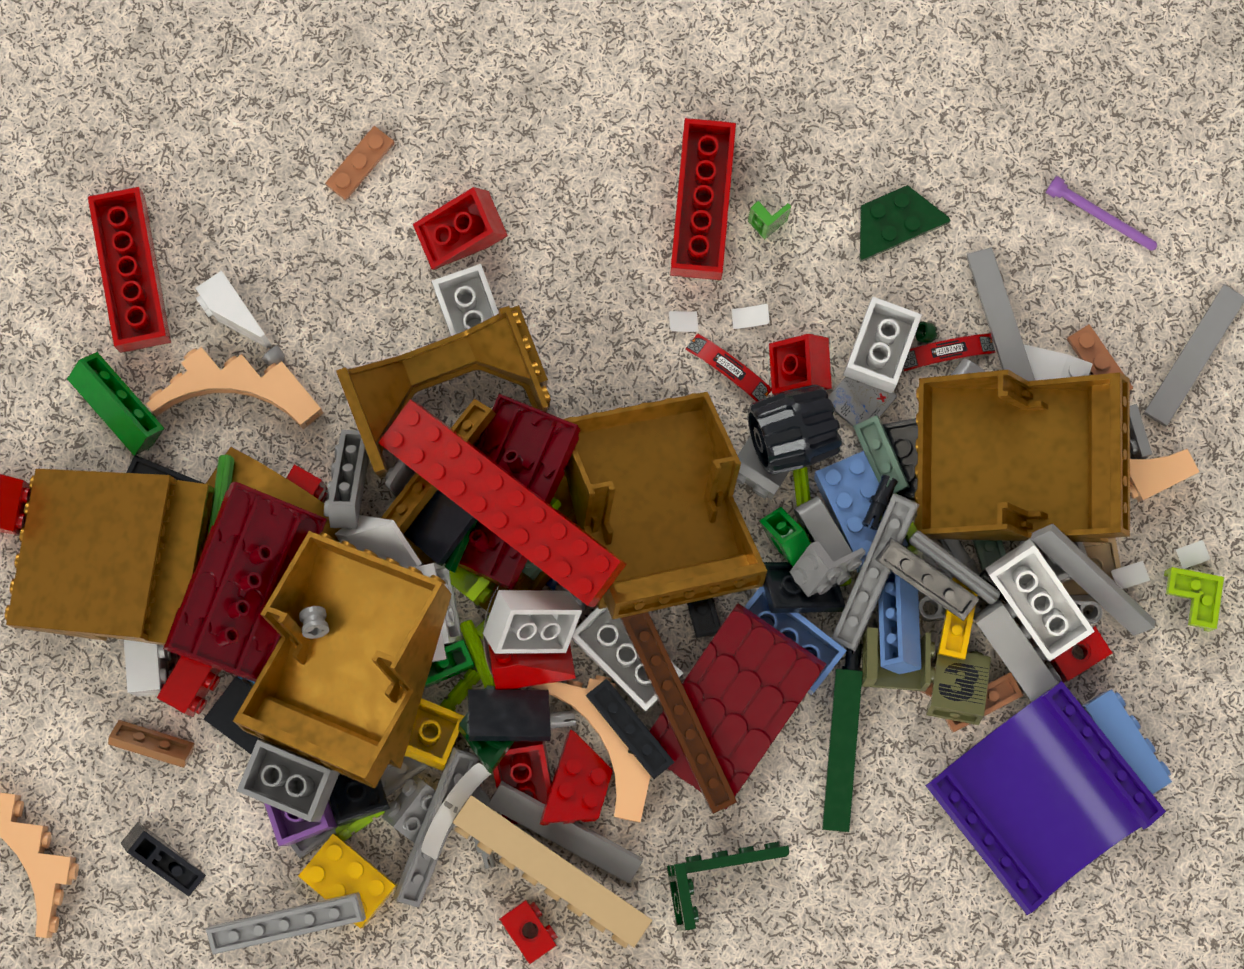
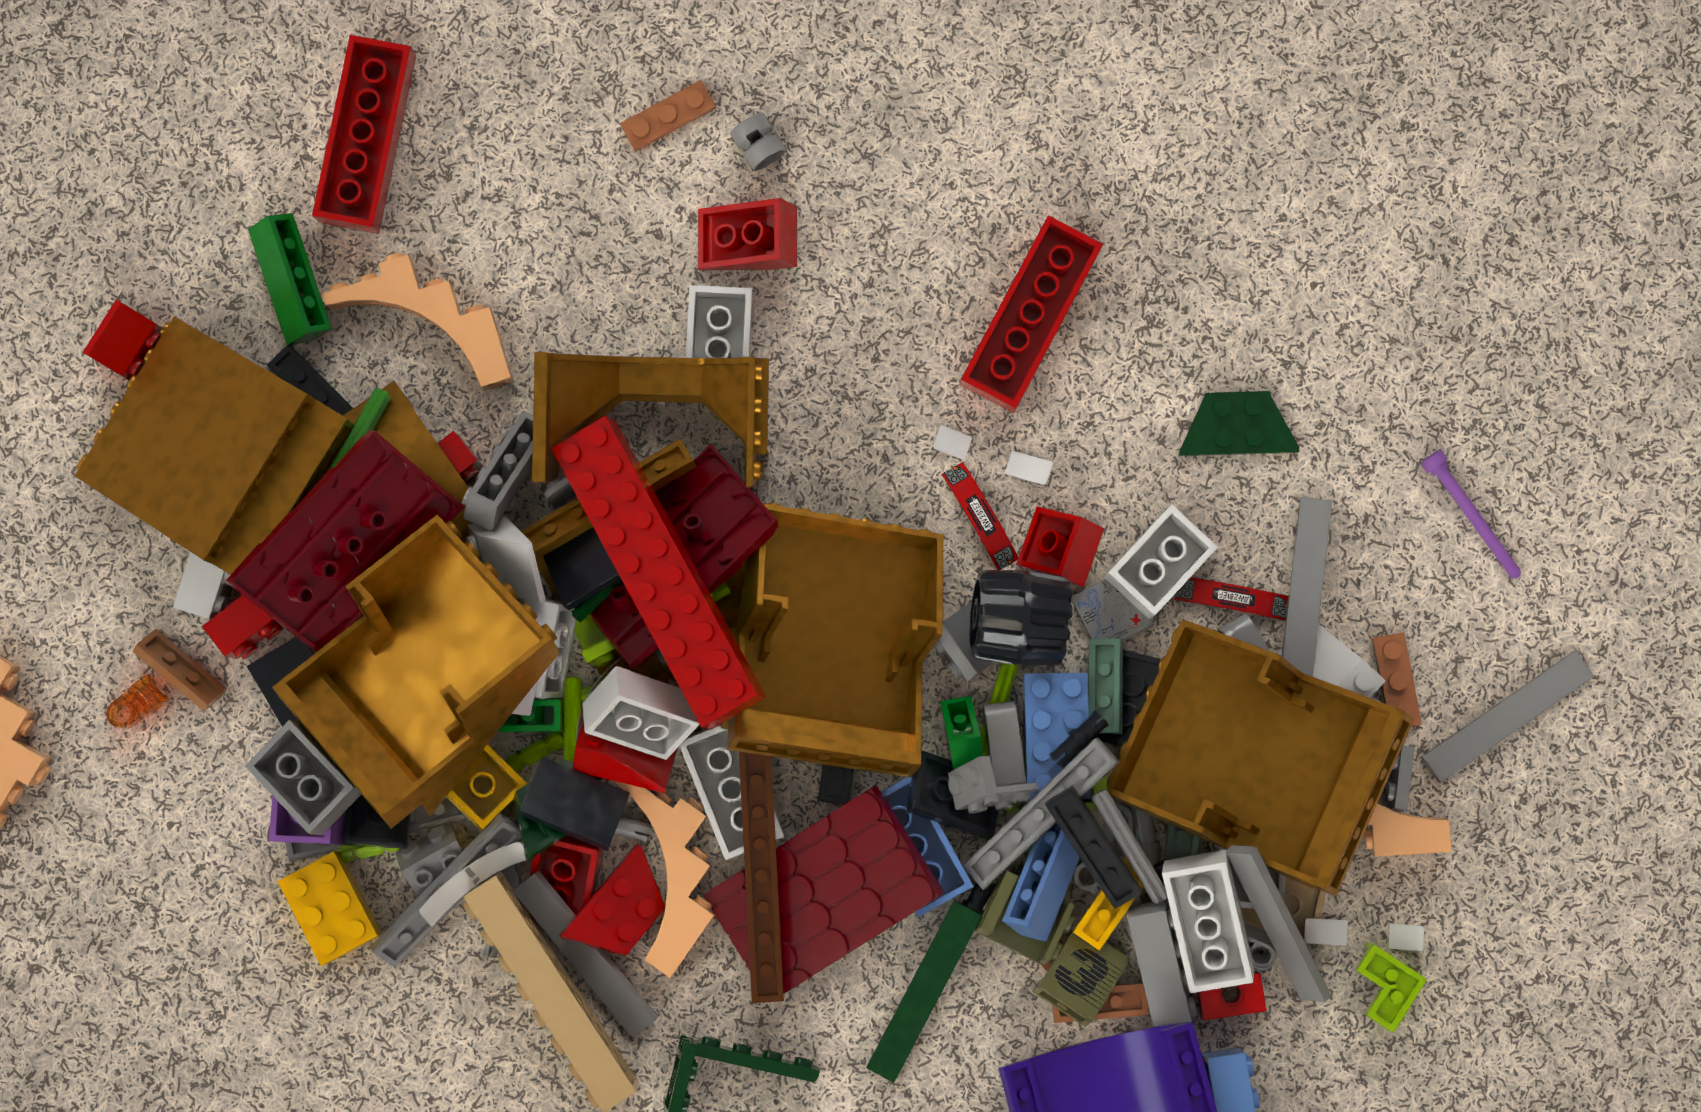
camera: 25 degrees right, 5 degrees up
(128, 782) = (138, 703): none -> clear orange piece
(162, 859) = (141, 799): black slope -> none
(221, 300) = (453, 214): white slope -> none
(274, 355) = (484, 296): light grey hinge -> none
(286, 923) = (244, 926): light grey tile -> none
(314, 622) = (402, 616): light grey wheel -> none
(446, 157) = (765, 149): none -> light grey wheel
(530, 947) = (497, 1062): red brick -> none
(630, 729) = (701, 872): black tile -> none
(764, 222) = (1087, 368): bright green panel -> none
(929, 329) = (1217, 572): dark green hinge -> none

